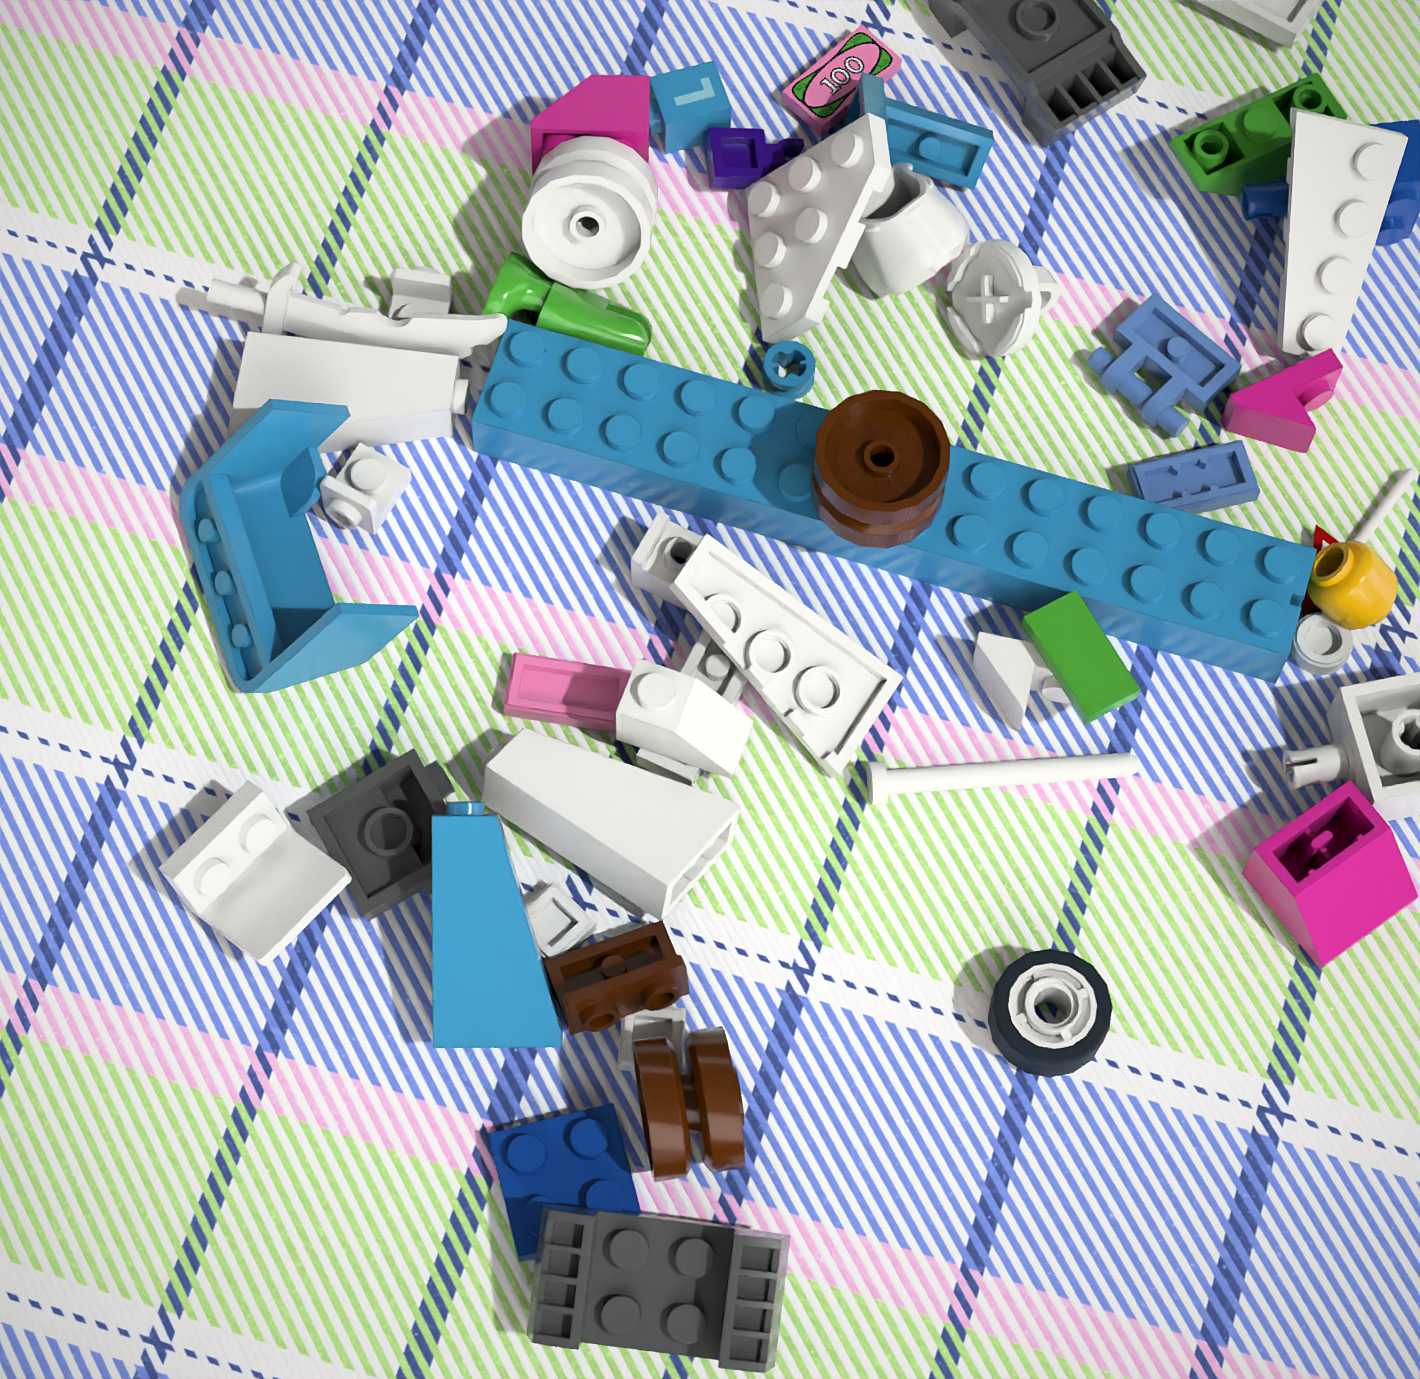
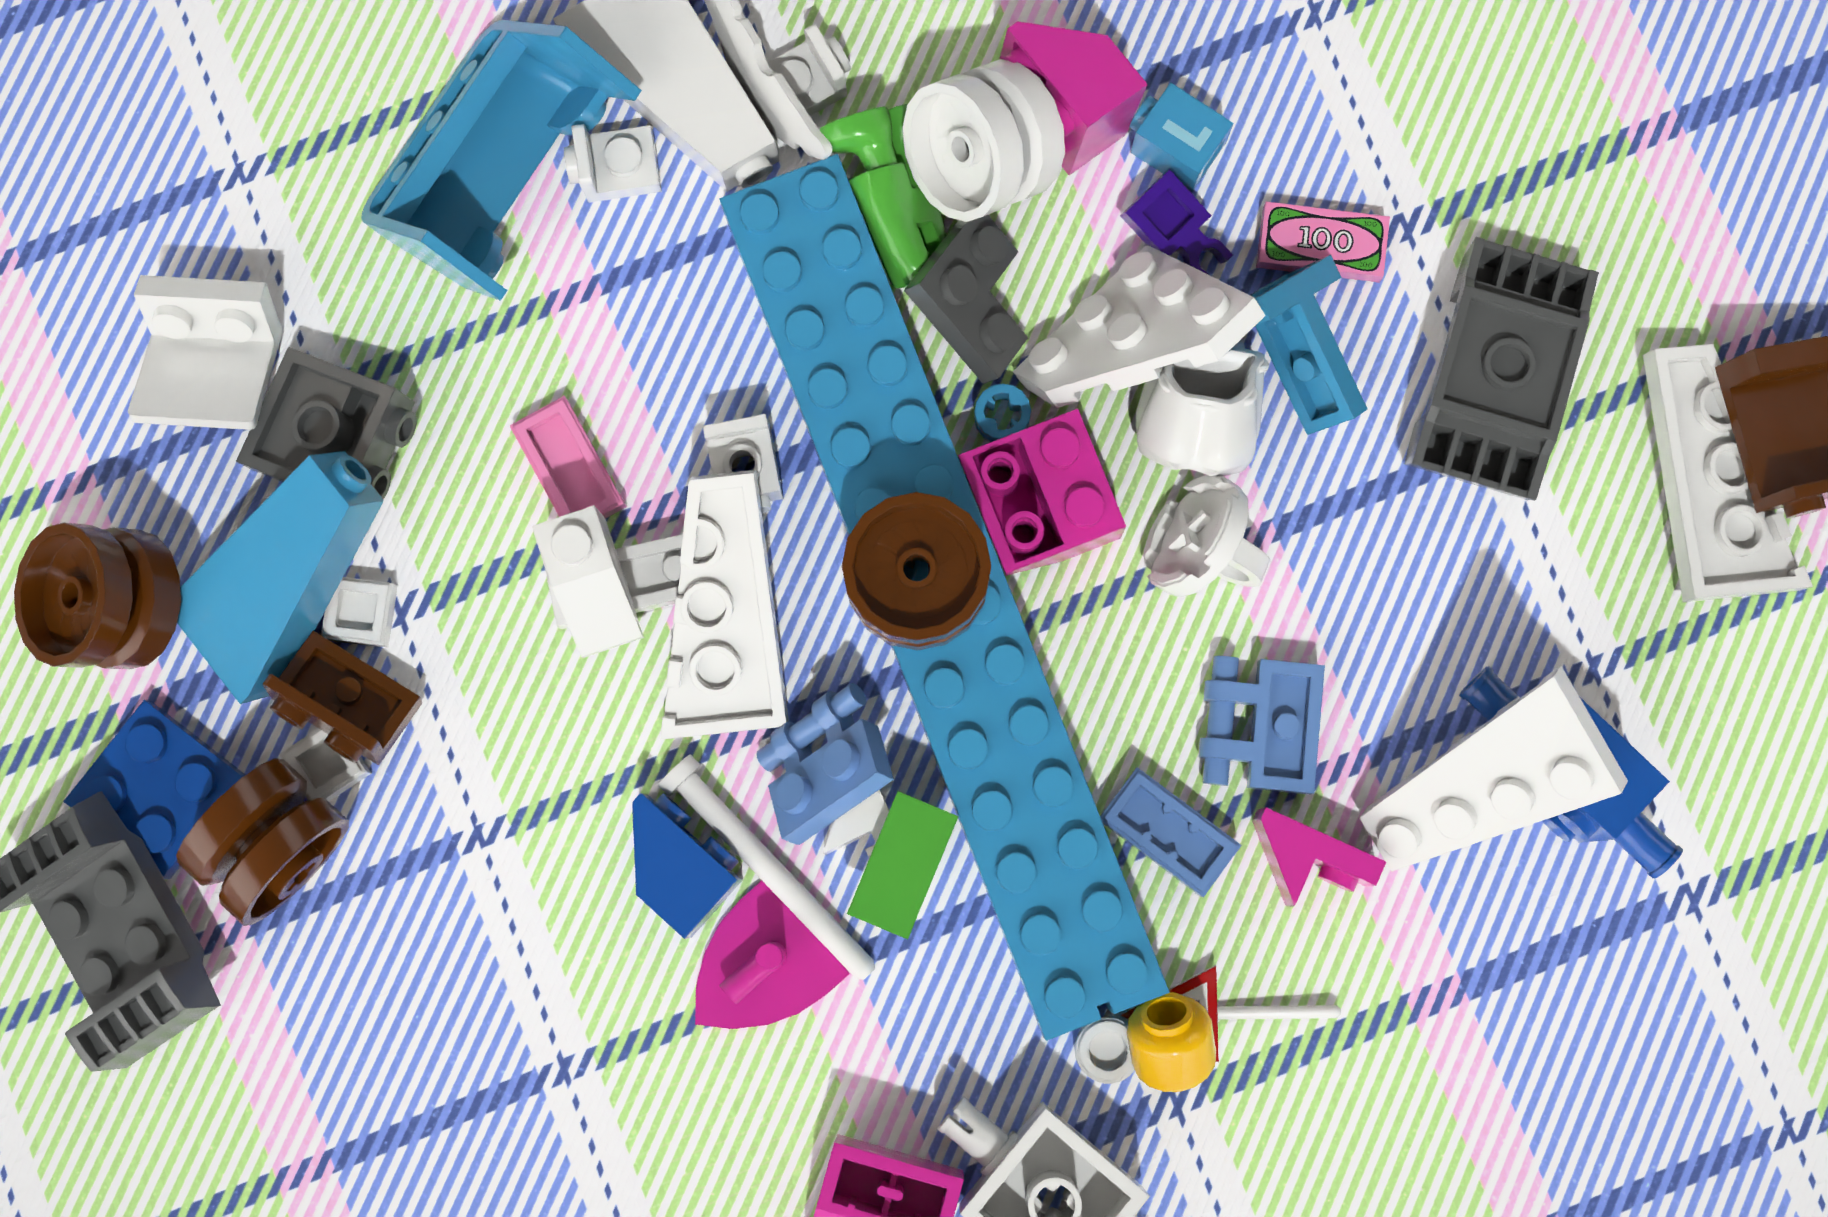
camera: 60 degrees right, 15 degrees up
(387, 1086) = (96, 597): none -> reddish brown wheel
(609, 817) = (471, 596): white slope -> none
(678, 324) = (957, 297): none -> dark grey plate
(877, 353) = (1043, 494): none -> dark pink slope
(947, 833) = (676, 871): none -> blue slope
(973, 663) = (834, 777): none -> medium blue plate
(1055, 979) = (543, 1076): wheel -> none
(1068, 836) = (762, 966): none -> dark pink shield
(1252, 140) = (1539, 636): bright green slope -> none

